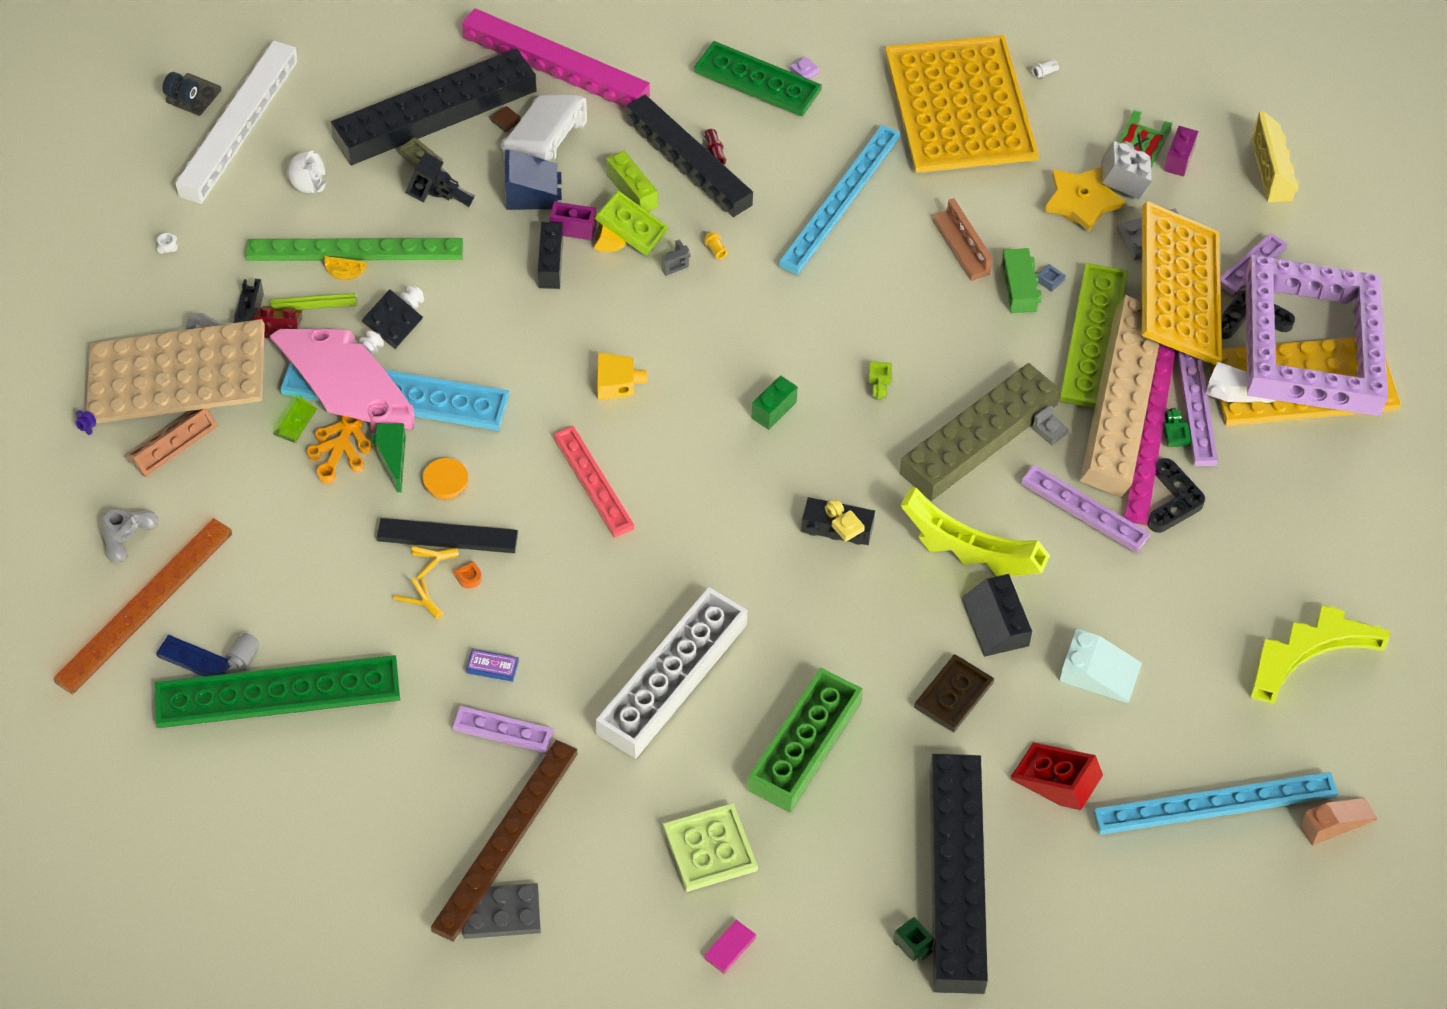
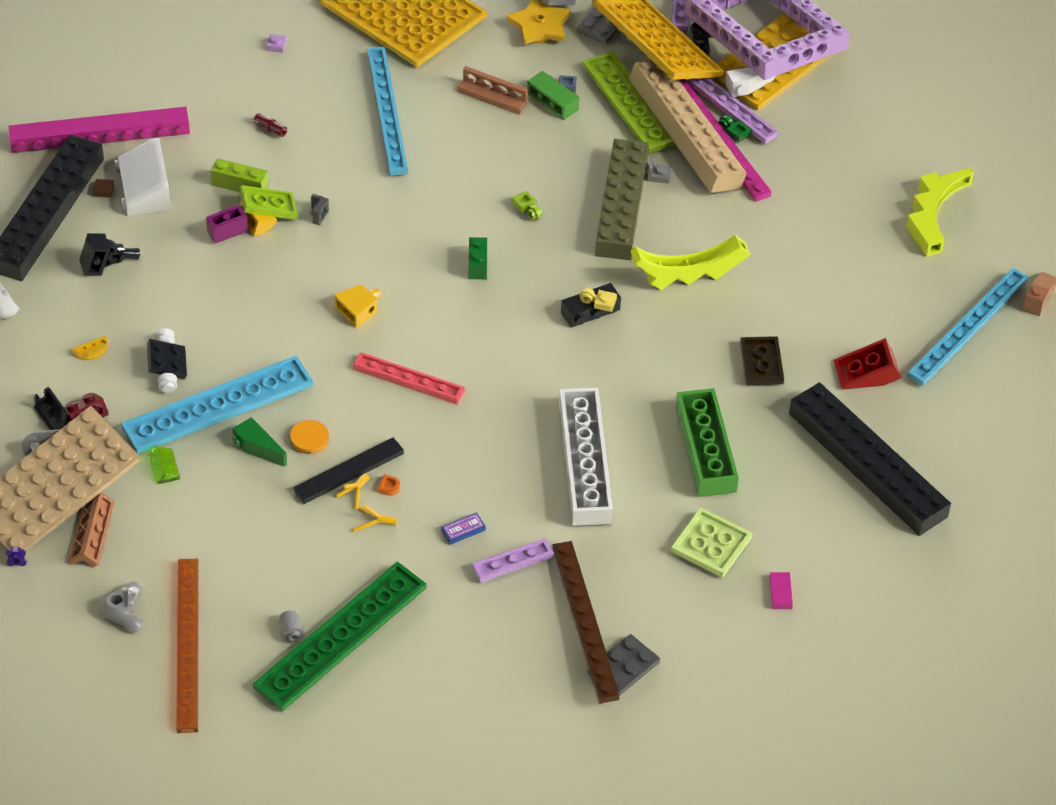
camera: 40 degrees left, 5 degrees down
(192, 657) = (258, 653): clear blue tile -> none
(315, 302) = (97, 381): lime axle -> none
(339, 445) = (207, 442): light orange plant -> none
(345, 376) = (178, 412): bright pink panel -> none
(355, 249) = (86, 332): bright green plate -> none
(414, 150) = (67, 244): olive plate -> none
(530, 182) = (169, 217): slope -> none
(550, 255) = (233, 255): black brick -> none
(689, 156) = (258, 139): black brick -> none
(713, 241) = (331, 184): yellow pin -> none
(757, 78) = (252, 65): green plate -> none
(911, 933) = (883, 512): dark green brick -> none
(997, 616) = (742, 299): black slope -> none
(1085, 508) = (728, 206): lavender plate -> none
(1100, 667) = (827, 292): light aqua slope -> none
(1181, 499) = (778, 168): black beam -> none

